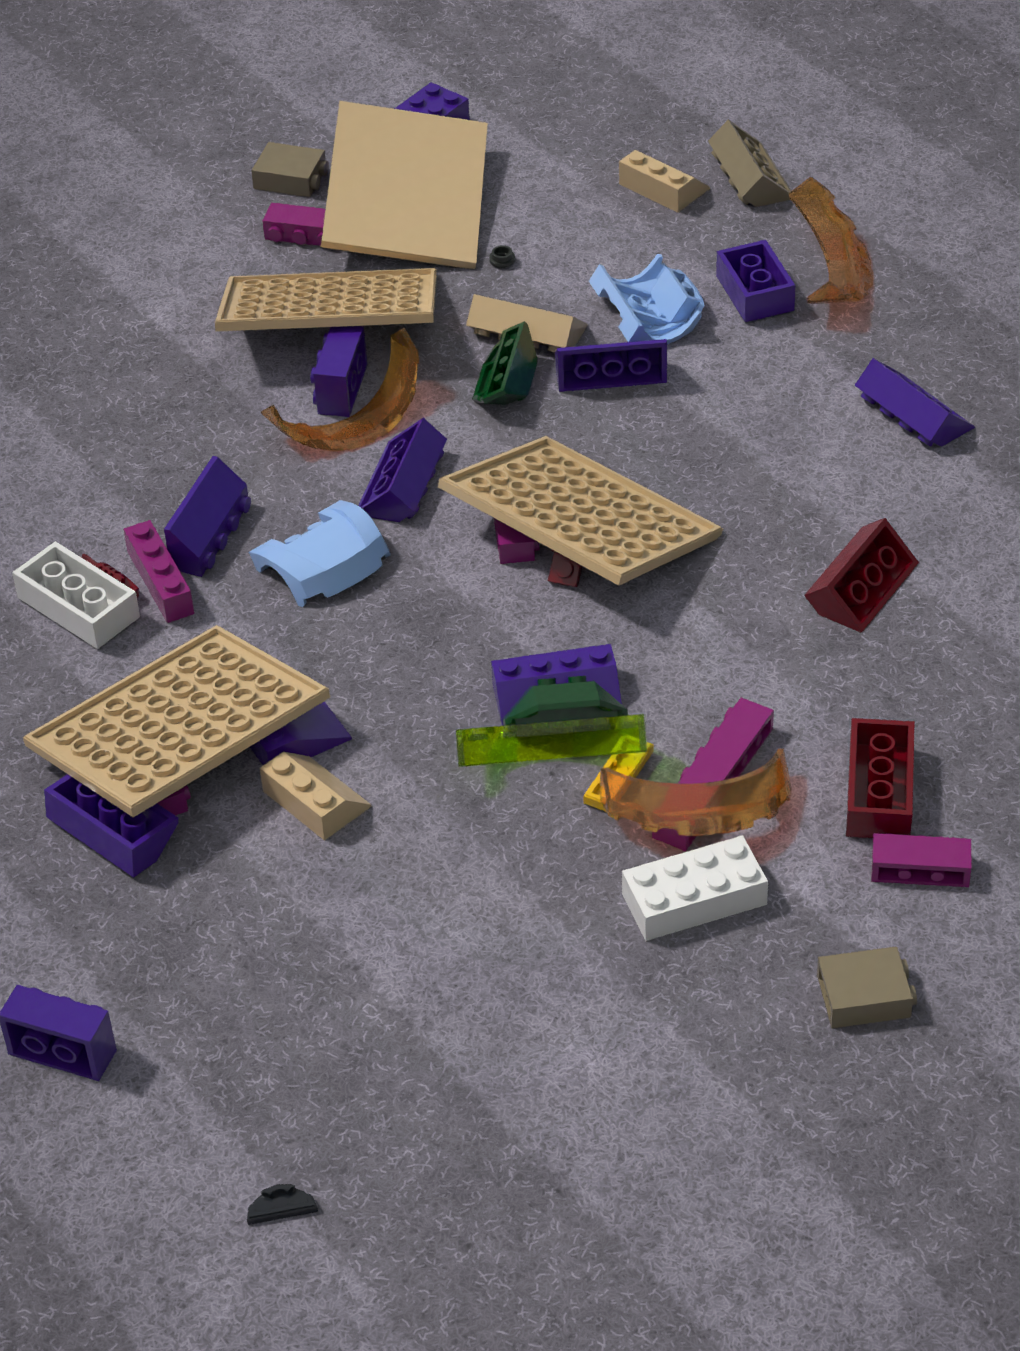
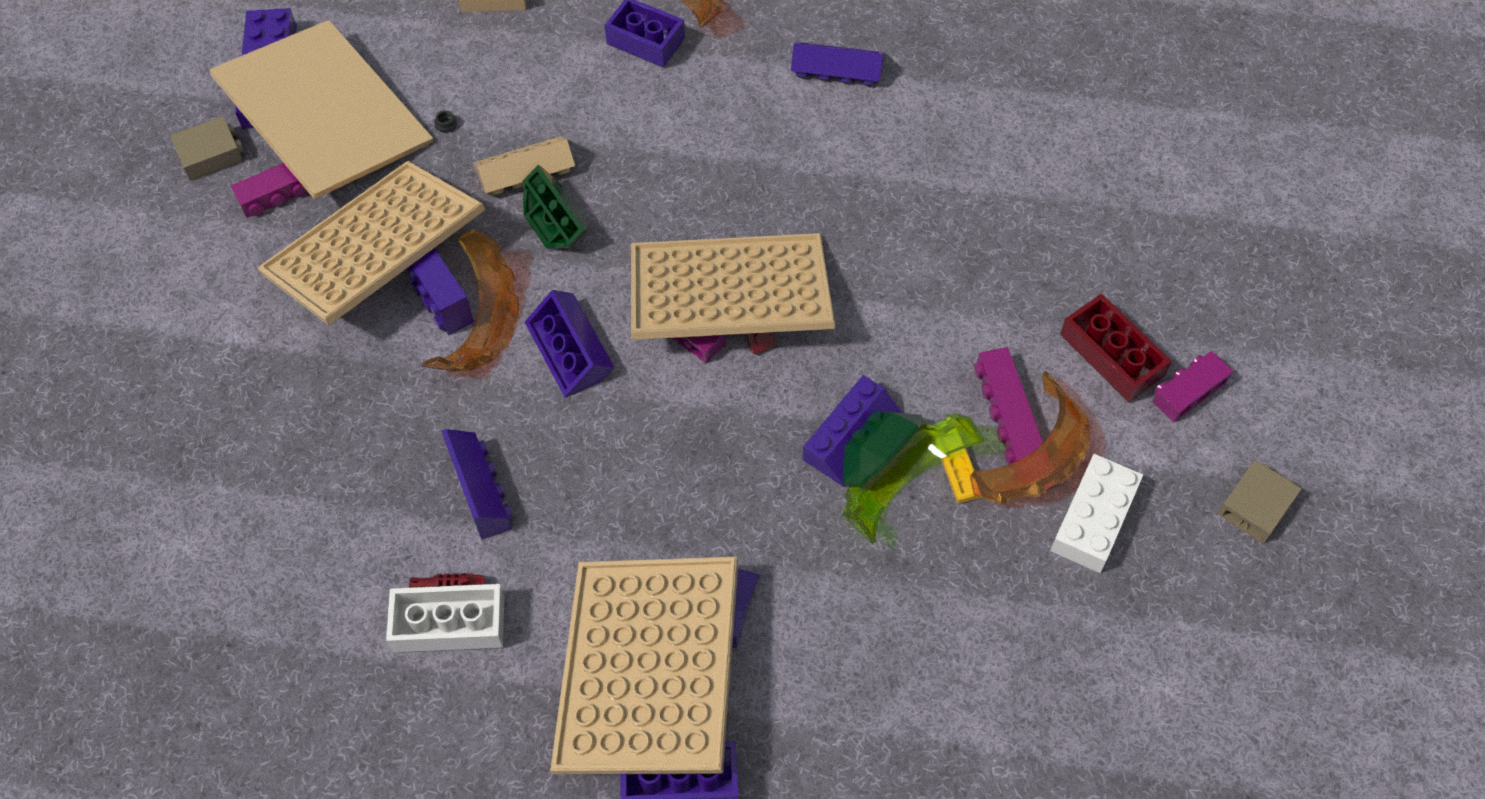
camera: 45 degrees left, 15 degrees up
(159, 571) = (484, 550): magenta brick -> none
(311, 793) = (788, 640): tan slope -> none
(327, 556) = (587, 445): light blue piece -> none
(611, 365) = (620, 158): dark purple slope -> none
(653, 303) = (595, 88): light blue piece -> none
(862, 576) = (942, 208): dark red slope -> none

